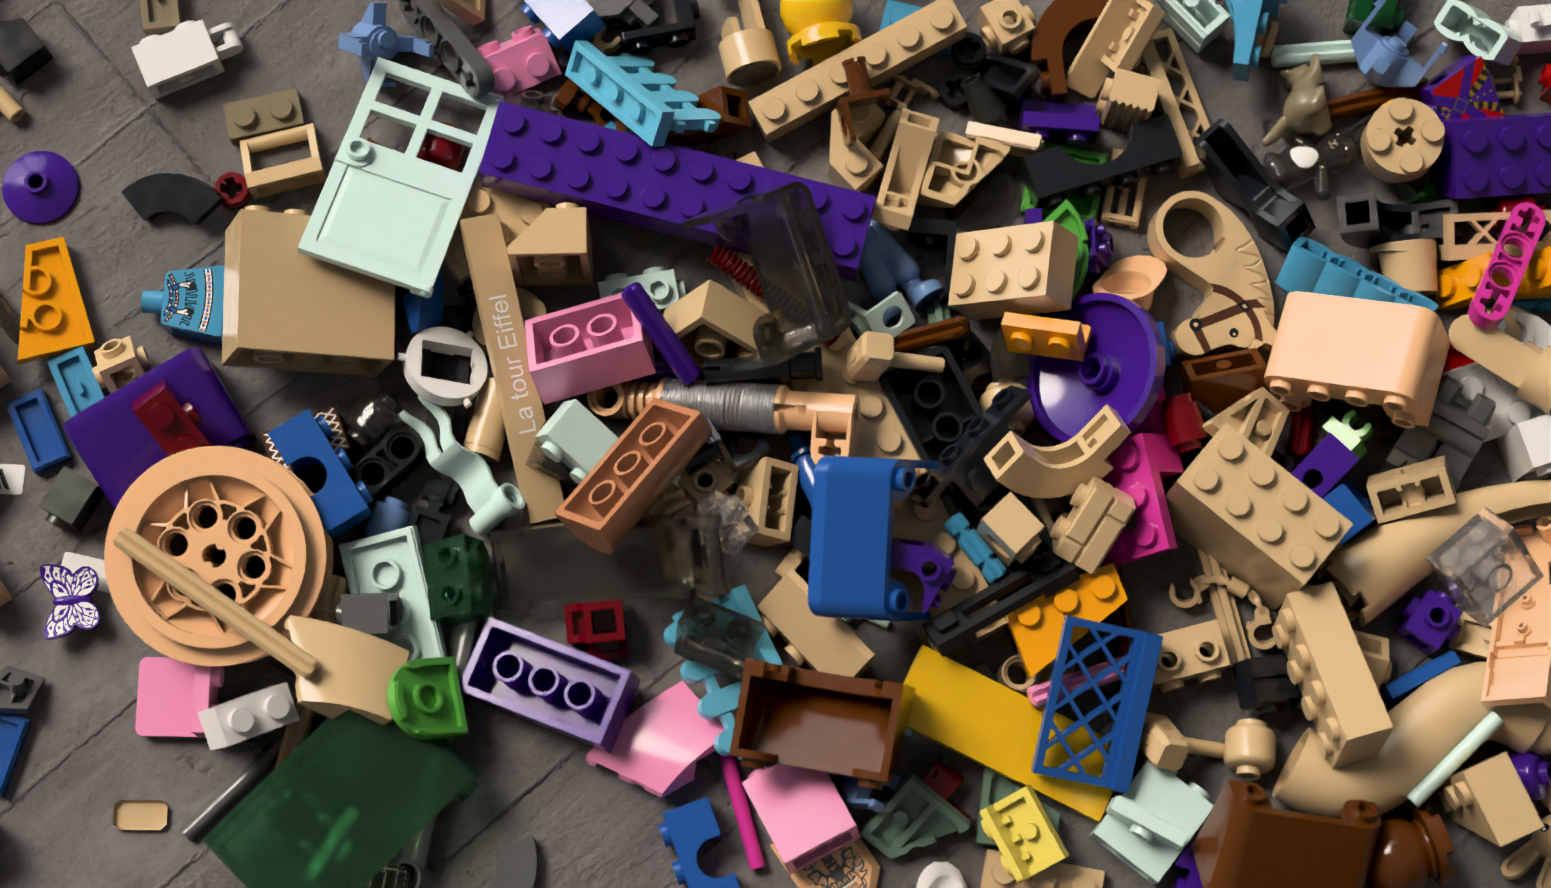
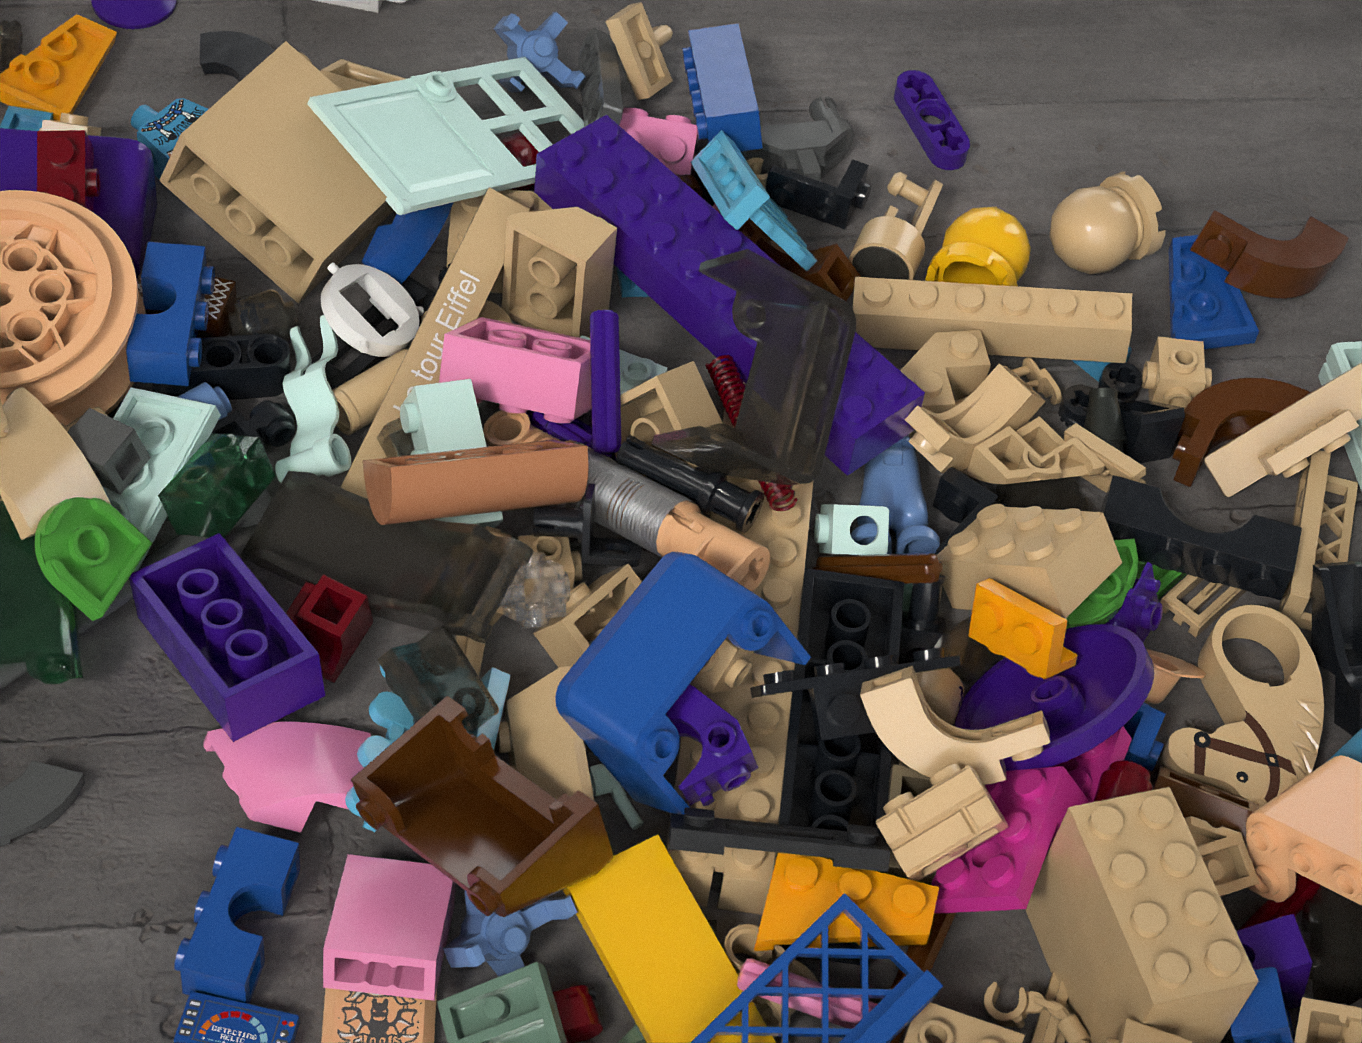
camera: 30 degrees right, 25 degrees down
(263, 115) = (382, 53): dark tan plate -> none
(742, 812) = (324, 904): dark pink piece -> none
(860, 95) = (976, 320): reddish brown bracket -> none
(876, 353) = (812, 532): tan piece -> none
(975, 547) = (790, 778): dark azure axle -> none
(1011, 530) = (841, 767): tan brick -> none
(1060, 121) = (1184, 491): dark purple bracket -> none
(1127, 99) = (1267, 489): tan brick -> none
(1350, 438) = (1319, 945): tile -> none

